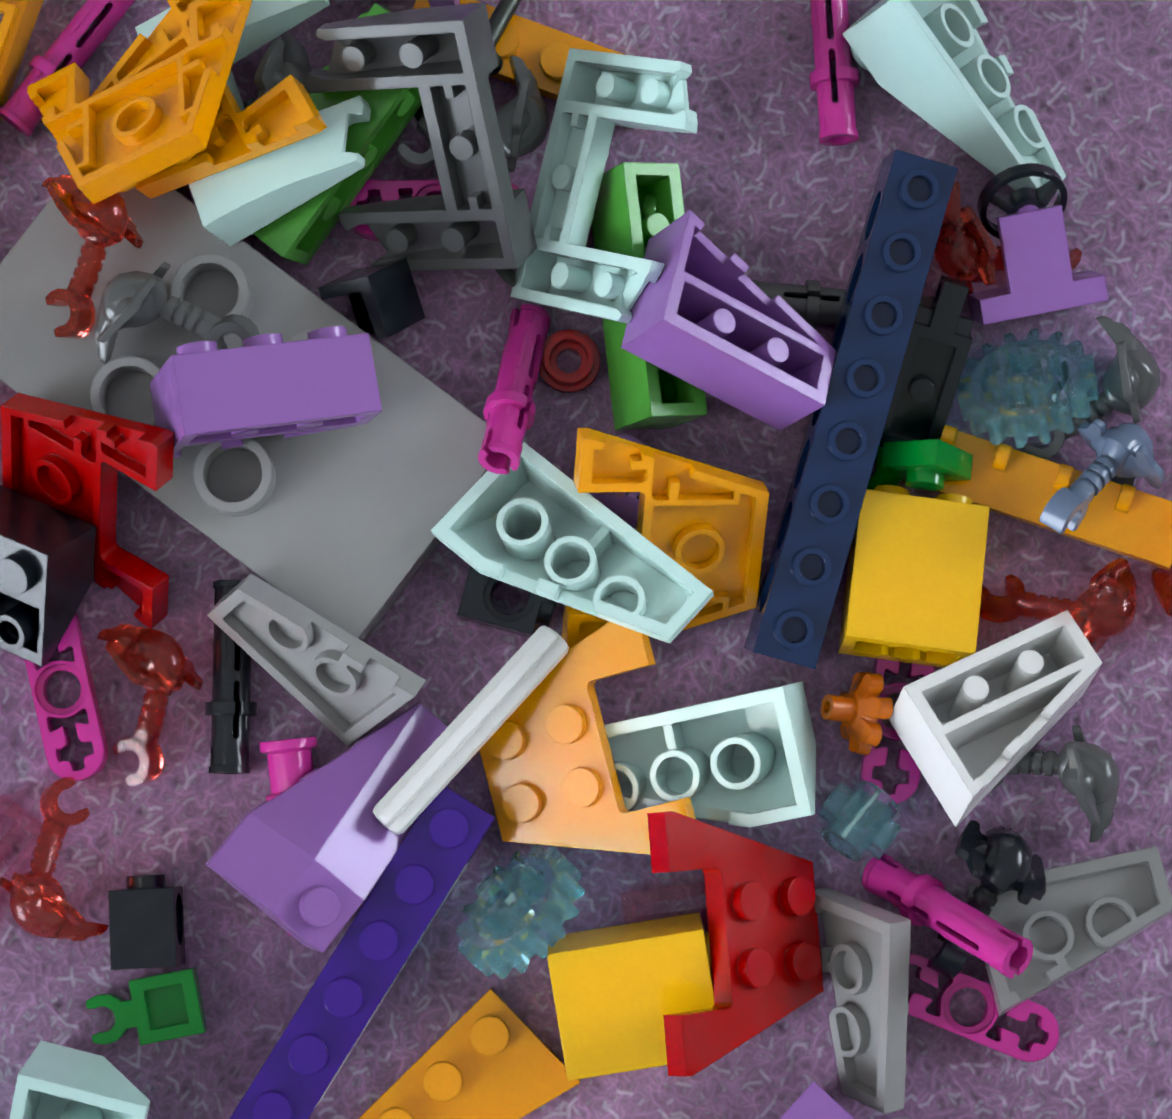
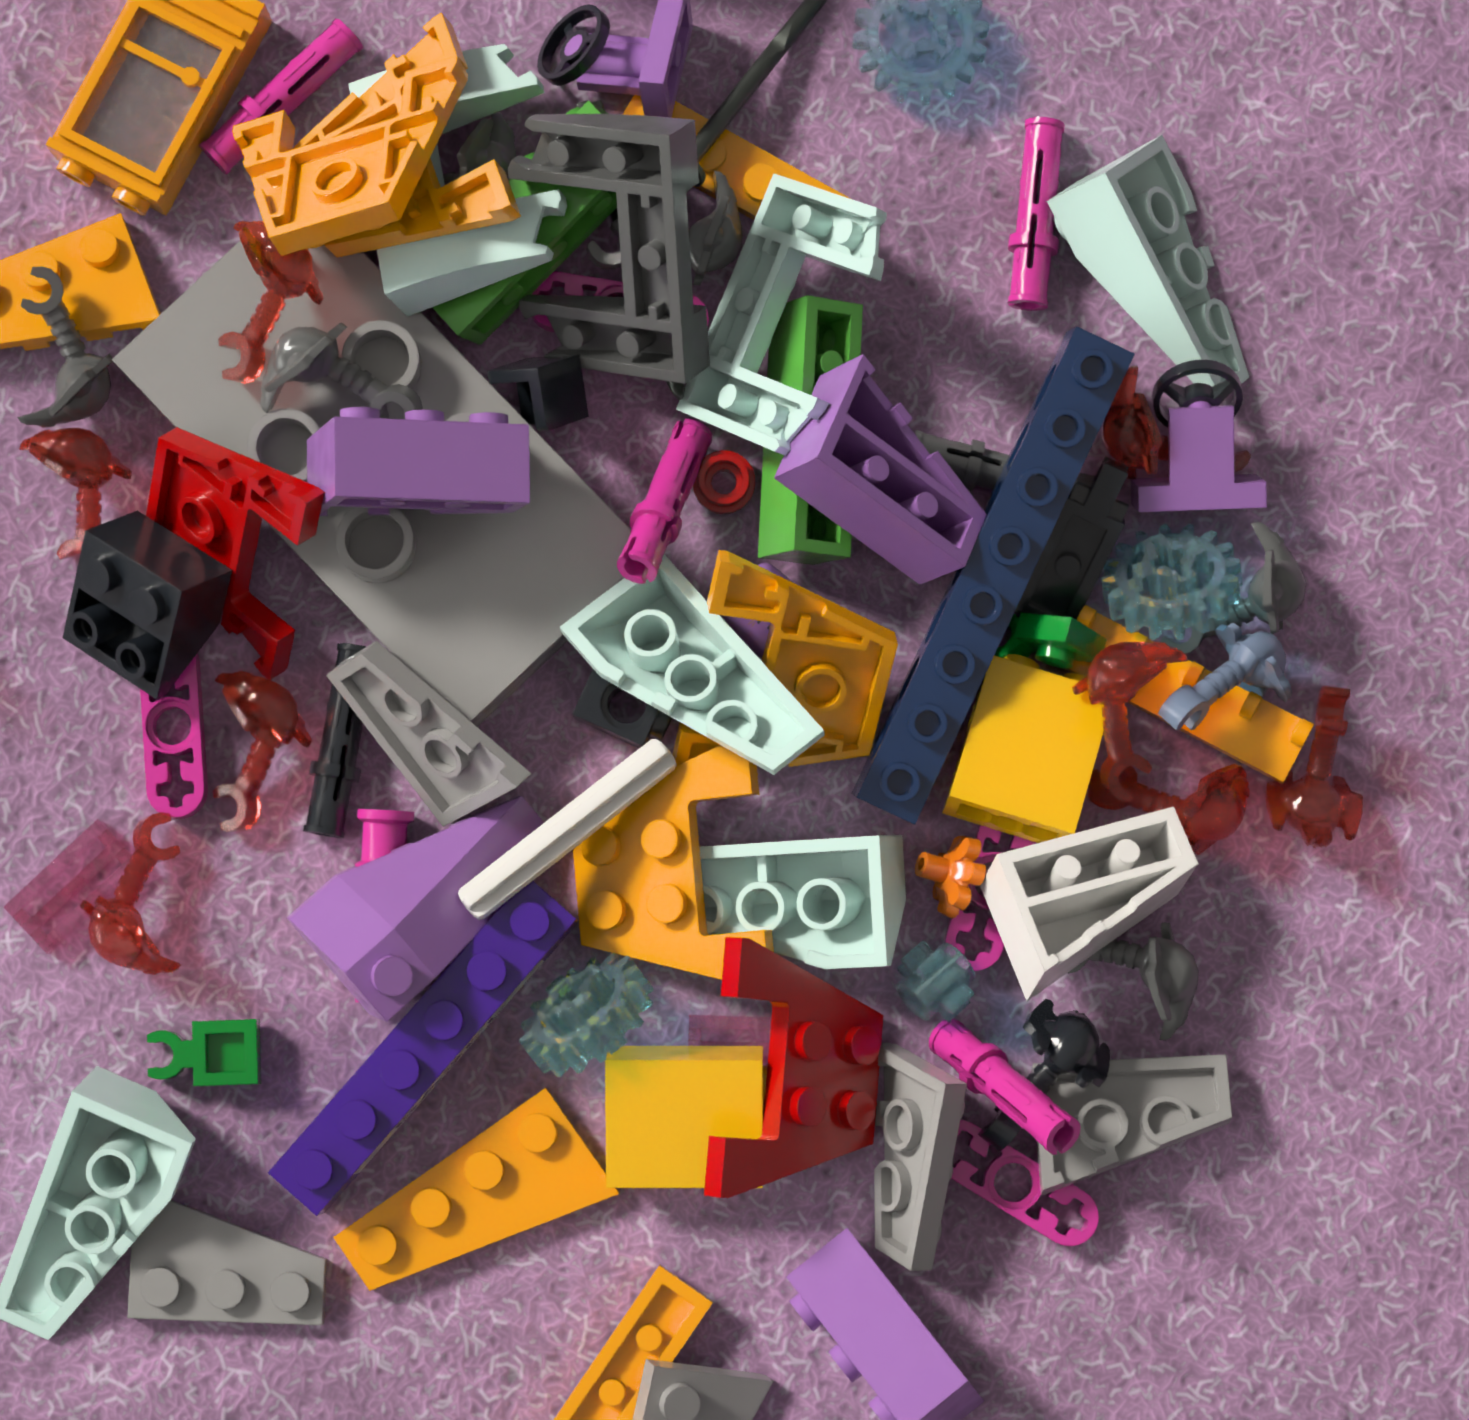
camera: 10 degrees right, 0 degrees up
(146, 924) = (218, 968): black brick -> none
(987, 495) = (1111, 681): none -> clear red piece

